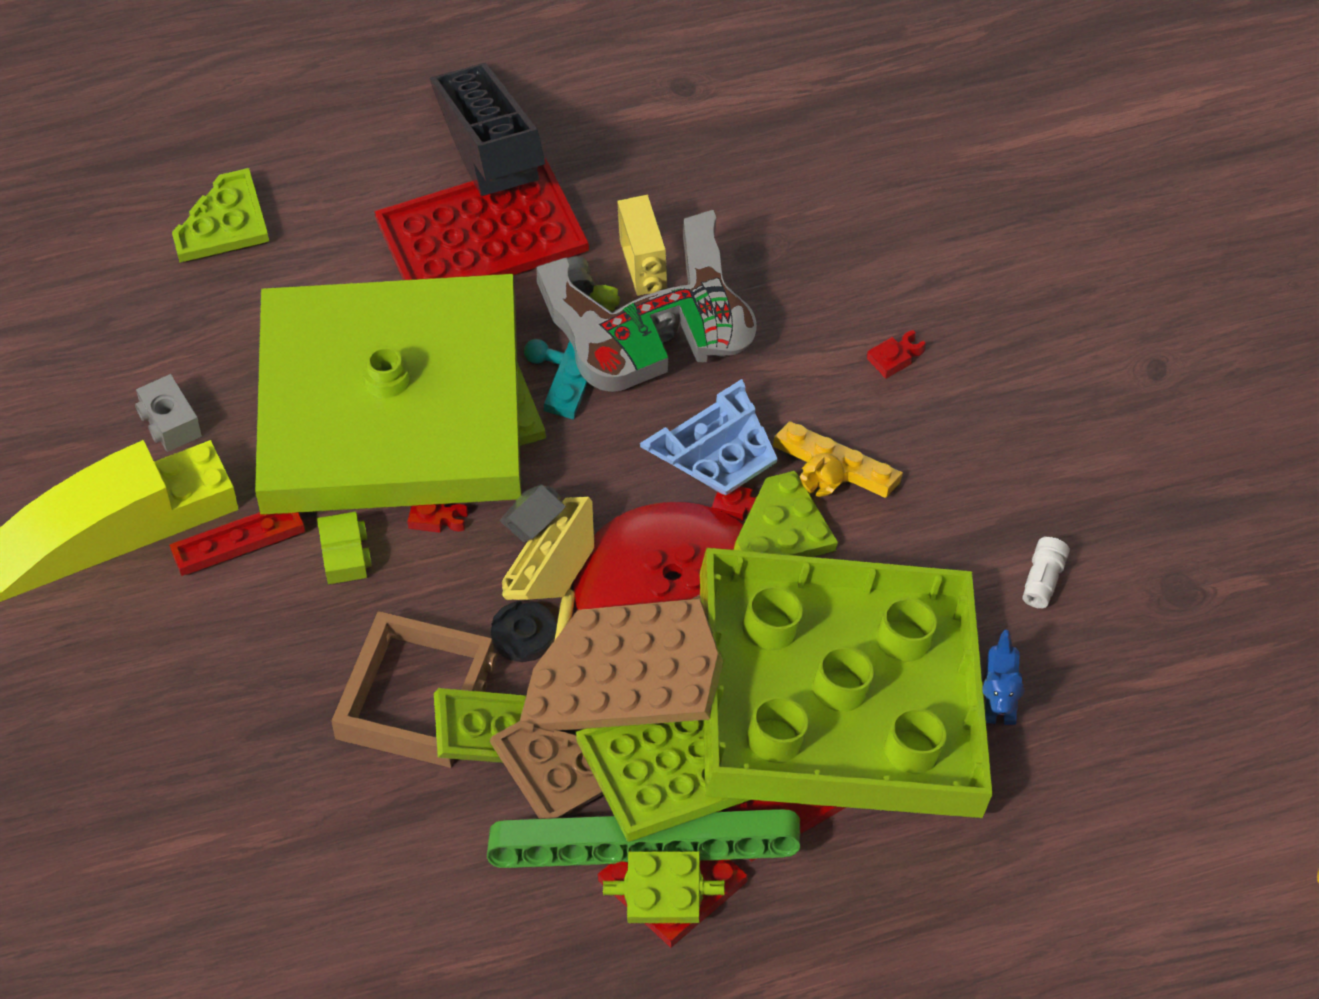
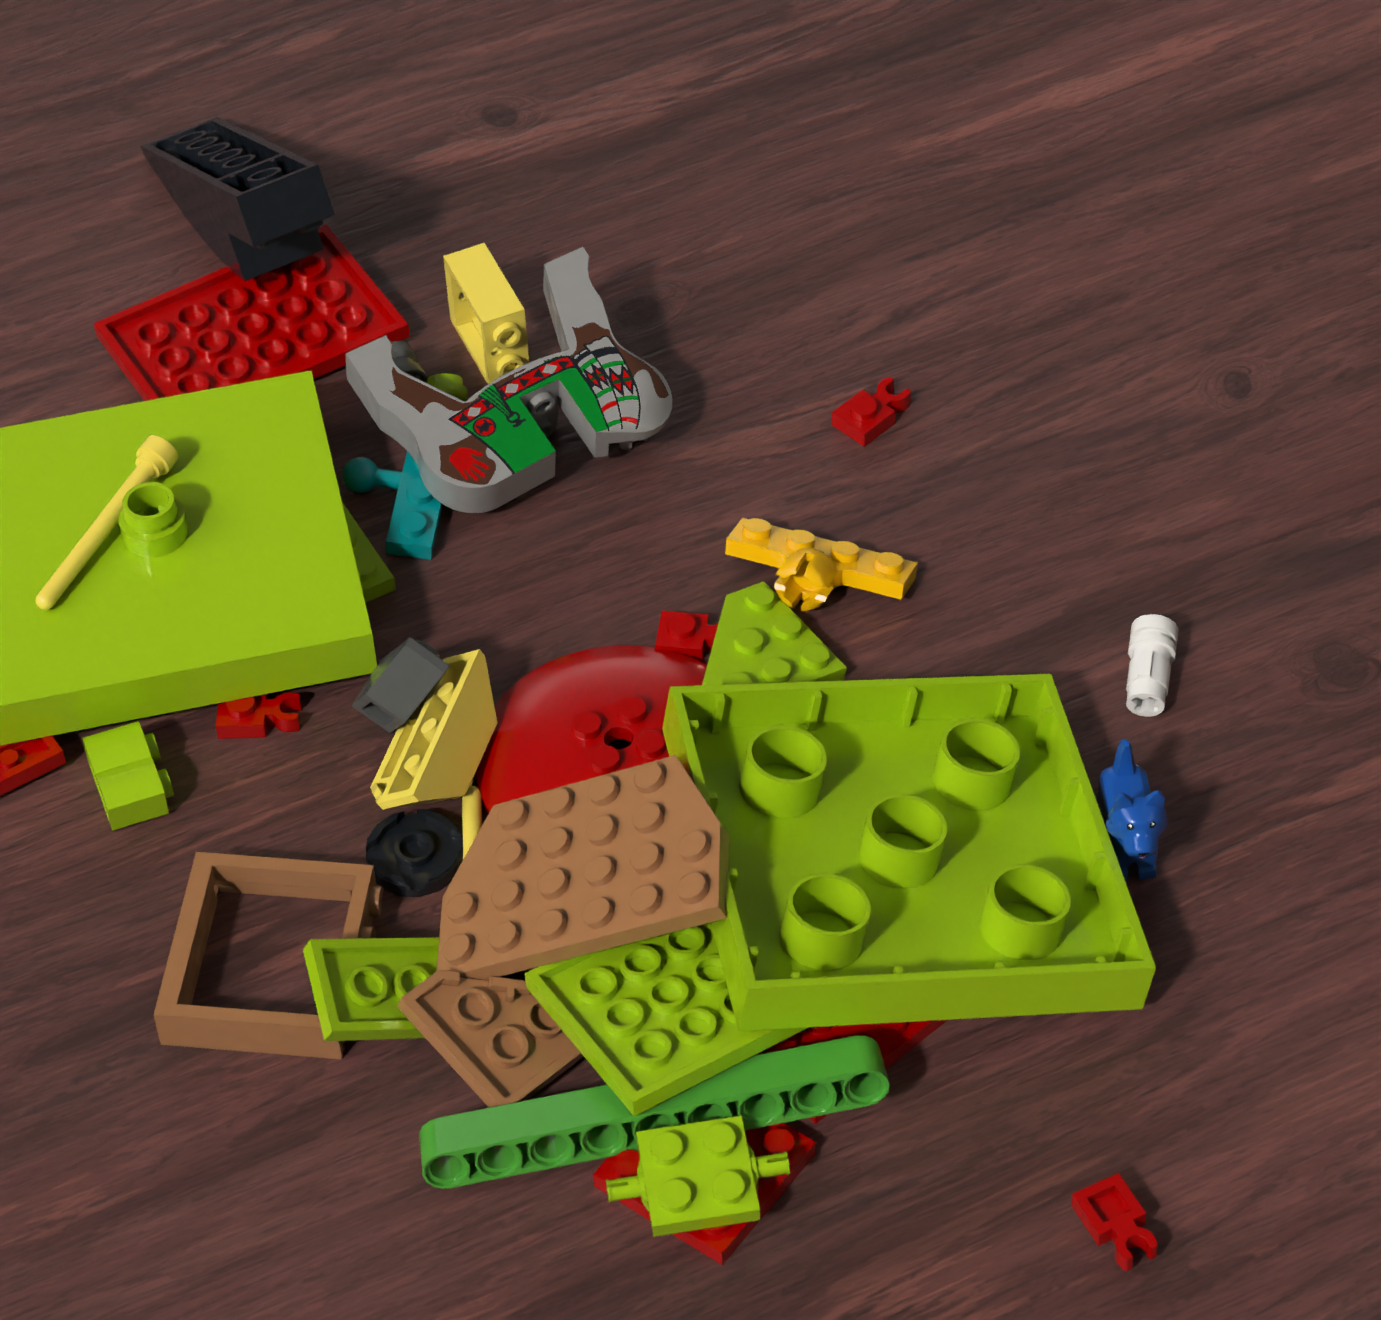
camera: 10 degrees left, 5 degrees down
(394, 327) = (153, 459): none -> light yellow piece
(720, 444) = (649, 559): light blue wedge -> none
(932, 956) = (1114, 1214): none -> red plate

